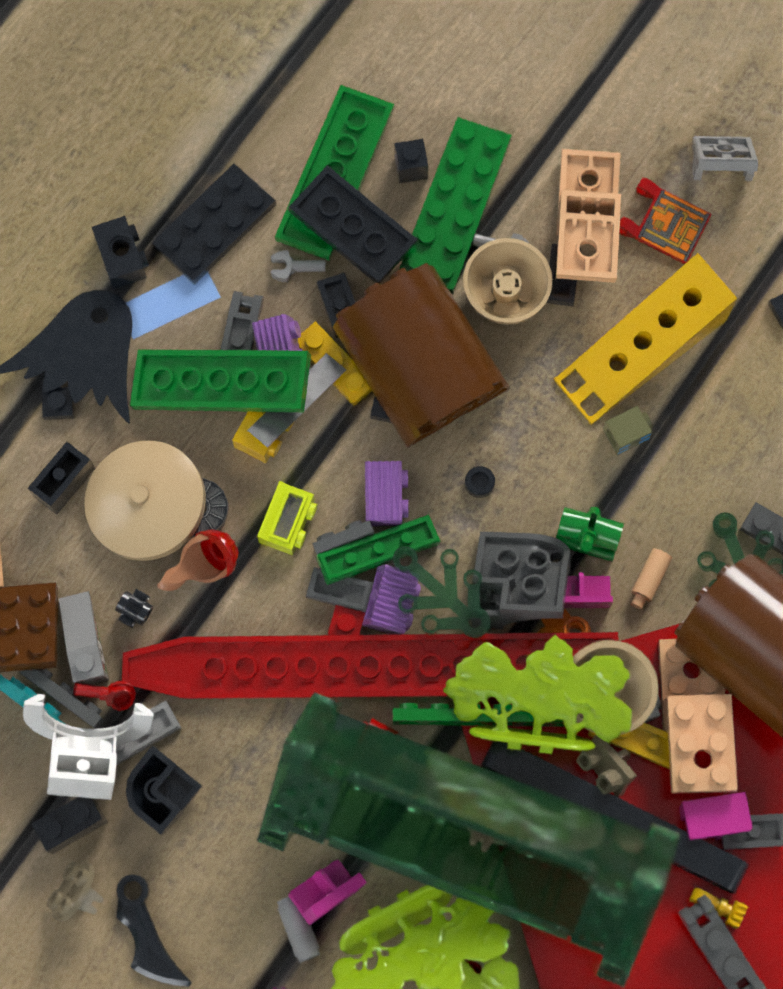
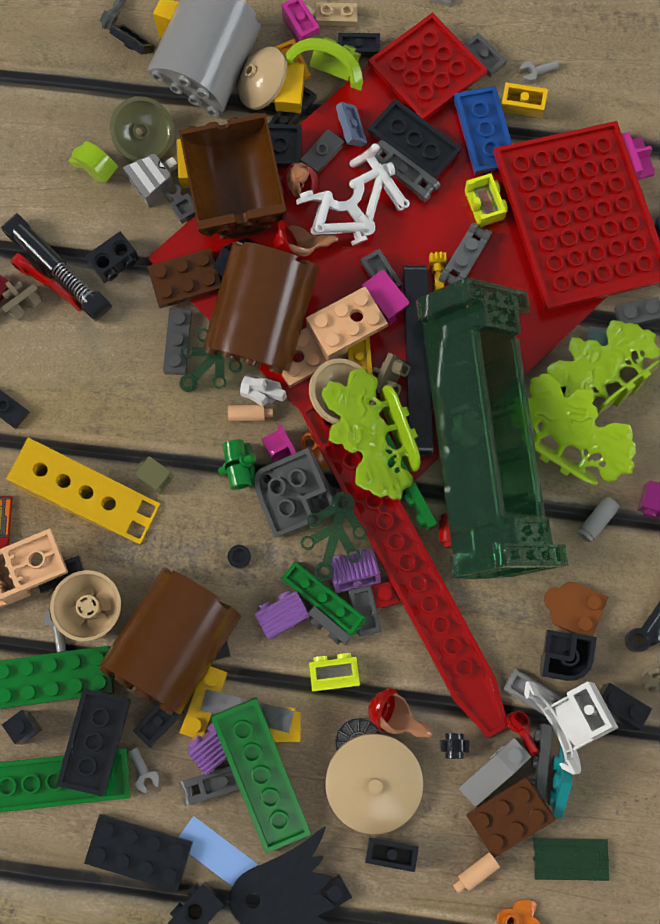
camera: 115 degrees left, 0 degrees up
(209, 838) = (575, 607): none -> dark orange plate
(325, 891) = (568, 512): dark pink panel -> none
(675, 603) = (261, 390): none -> white rock

